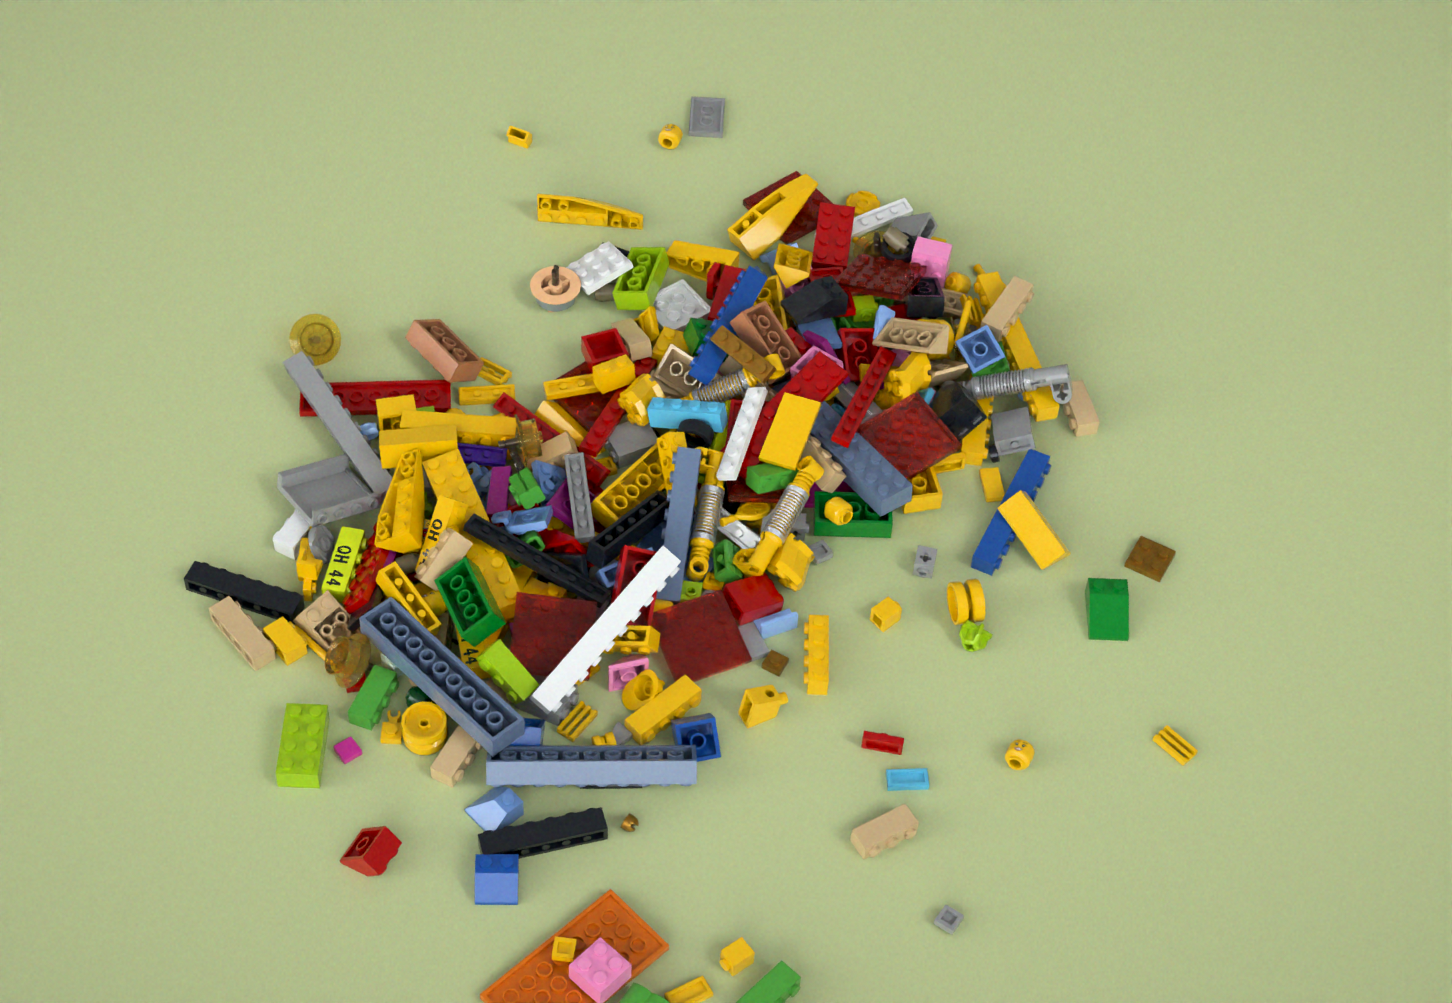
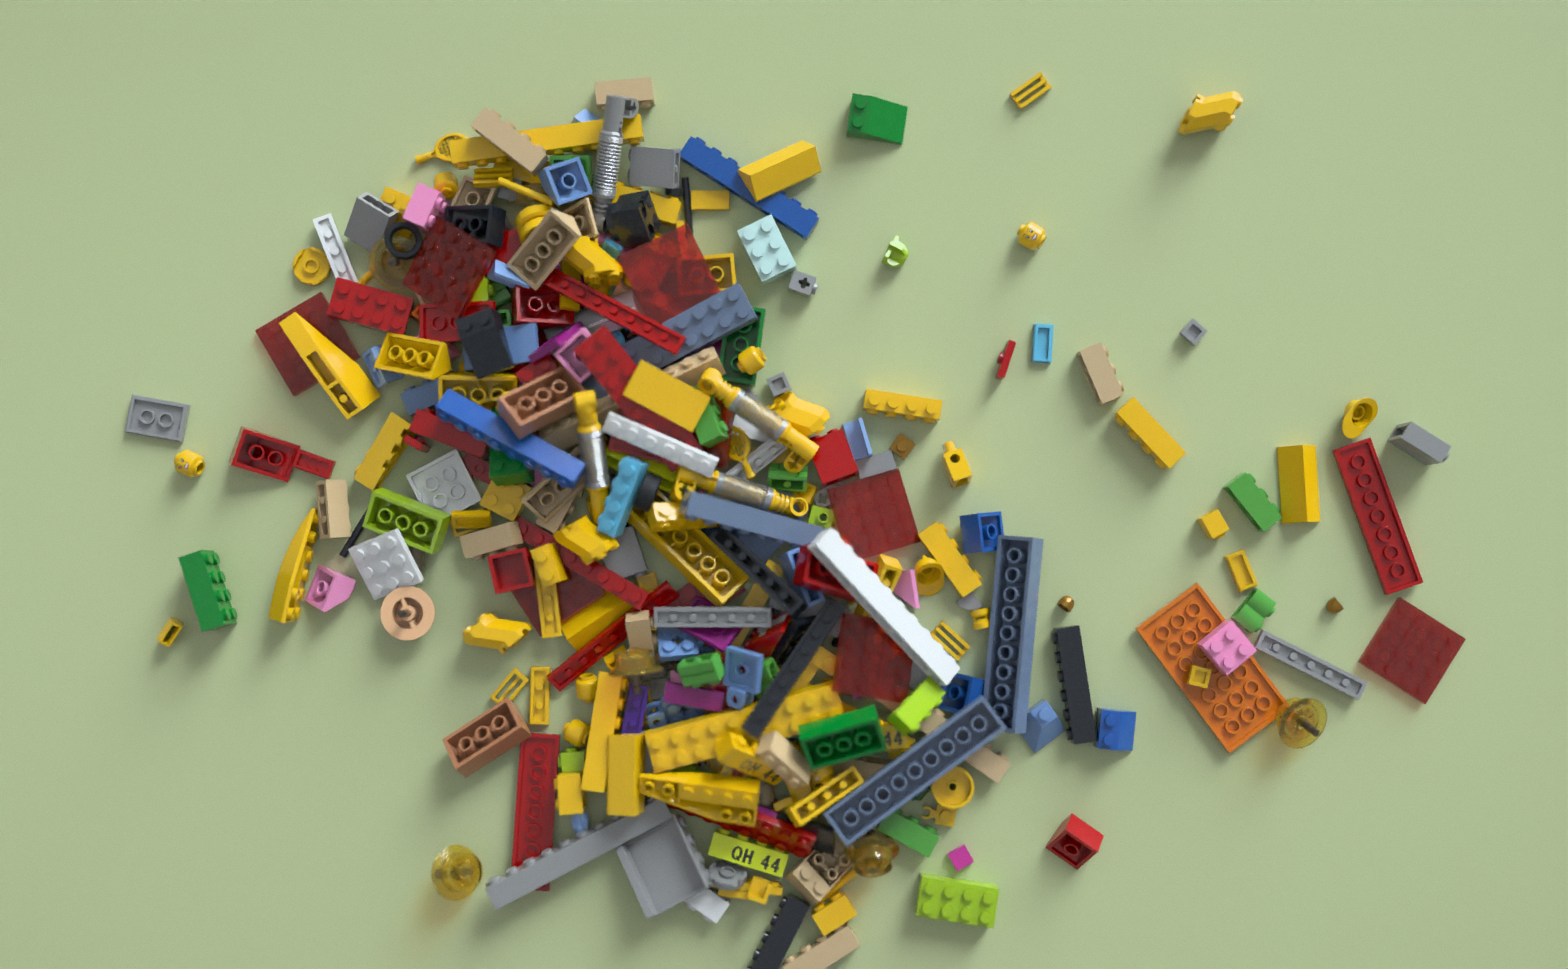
camera: 80 degrees left, 35 degrees up
(544, 349) = (496, 632): none -> yellow brick
(559, 153) = (208, 590): none -> green brick
(571, 237) = (329, 588): none -> bright pink slope
(644, 231) = (333, 509): none -> tan brick
(683, 218) = (313, 464): none -> red plate
(686, 182) = (263, 454): none -> red slope
(743, 354) = (569, 431): pearl gold plate -> none
(827, 881) = (1149, 434): none -> yellow brick
(885, 614) = (859, 331): yellow brick -> none
(896, 238) = (399, 241): dark tan brick -> none
(952, 528) = (766, 249): none -> light aqua brick
(966, 601) = (861, 253): yellow wheel -> none
(975, 468) = (687, 203): none -> black bar
(1150, 558) = (816, 64): pearl gold plate -> none
(1195, 906) = (1210, 113): none -> yellow brick

